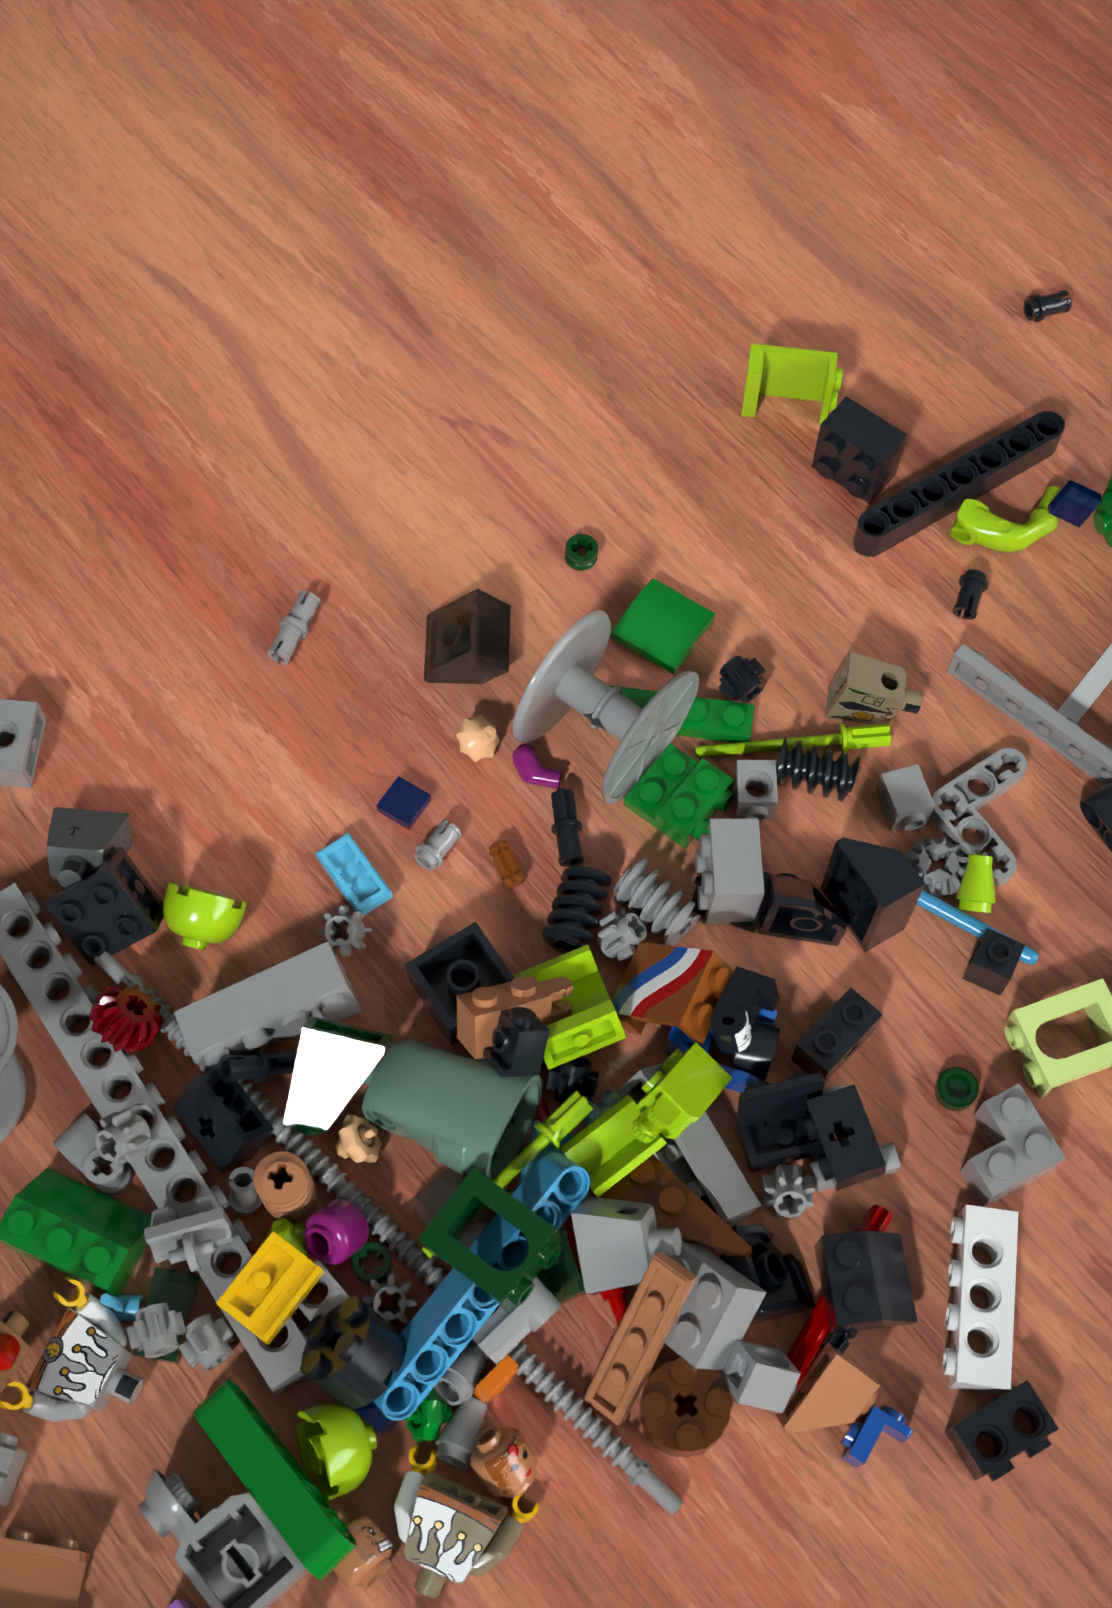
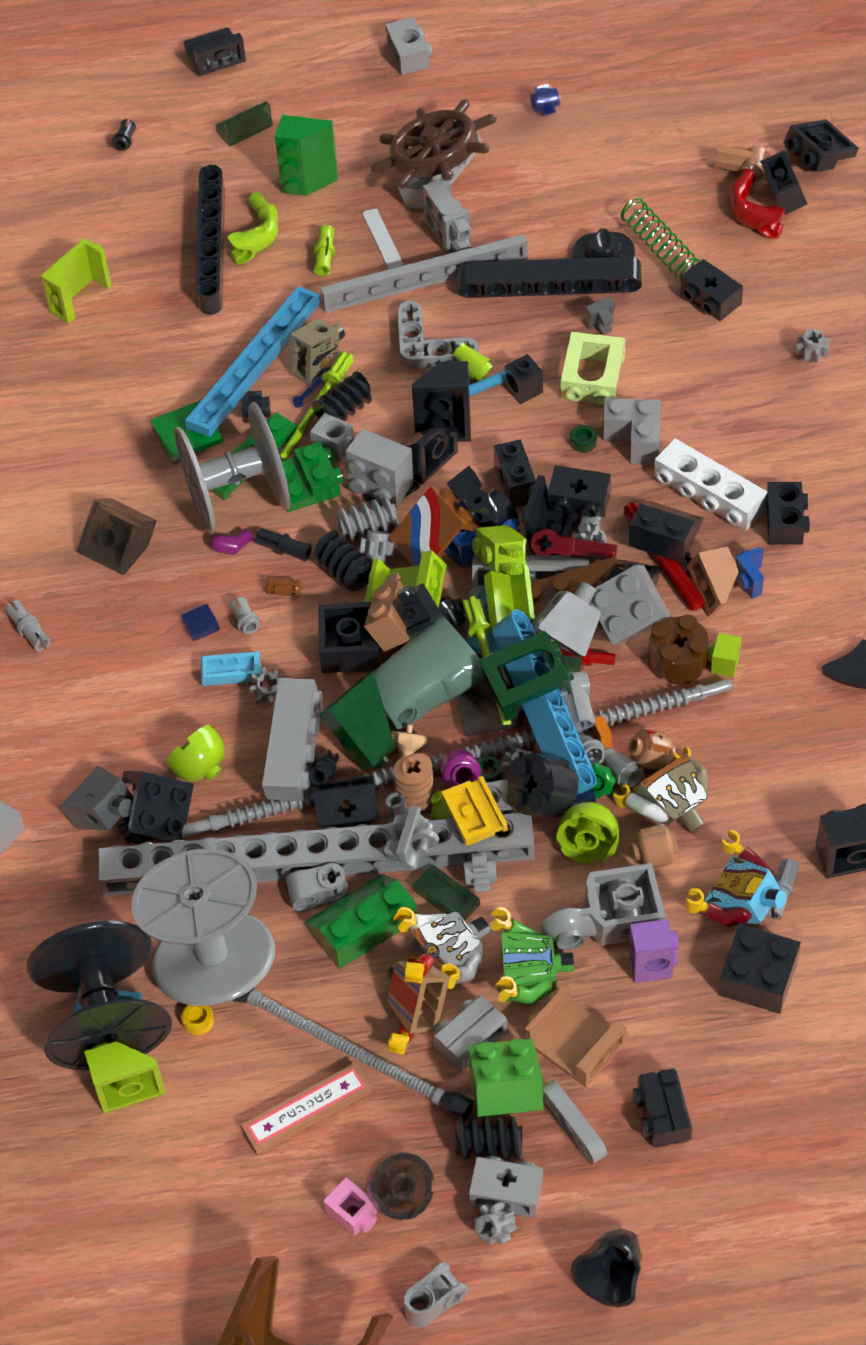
camera: 55 degrees left, 10 degrees down
(99, 1481) = (527, 961): none -> bright green torso
(122, 1137) = (332, 851): light grey gear -> none
(123, 1304) = (427, 907): medium azure hand -> none
(126, 1018) = (243, 819): dark red gear -> none
(156, 1330) = (457, 888): light grey gear -> none
(275, 1479) = (572, 866): green beam -> none
(477, 738) = (188, 559): light nougat piece -> none
(571, 554) = (102, 455): dark green bush -> none
(640, 1337) = (628, 640): nougat tile -> none
(716, 1475) = (725, 654): none -> lime plate
(751, 1166) = (572, 546): none -> dark red connector
(760, 1376) = (686, 597): light grey brick -> none
(791, 720) = (298, 400): none -> clear blue hinge
(806, 636) = (252, 362): none -> dark azure plate
(858, 450) = (151, 270): black brick -> none
(905, 798) = (393, 369): light grey brick -> none
(970, 593) = (282, 268): black pin -> none
(1013, 623) = (324, 250): none -> lime pin
(1074, 503) = (273, 188): clear blue tile -> none

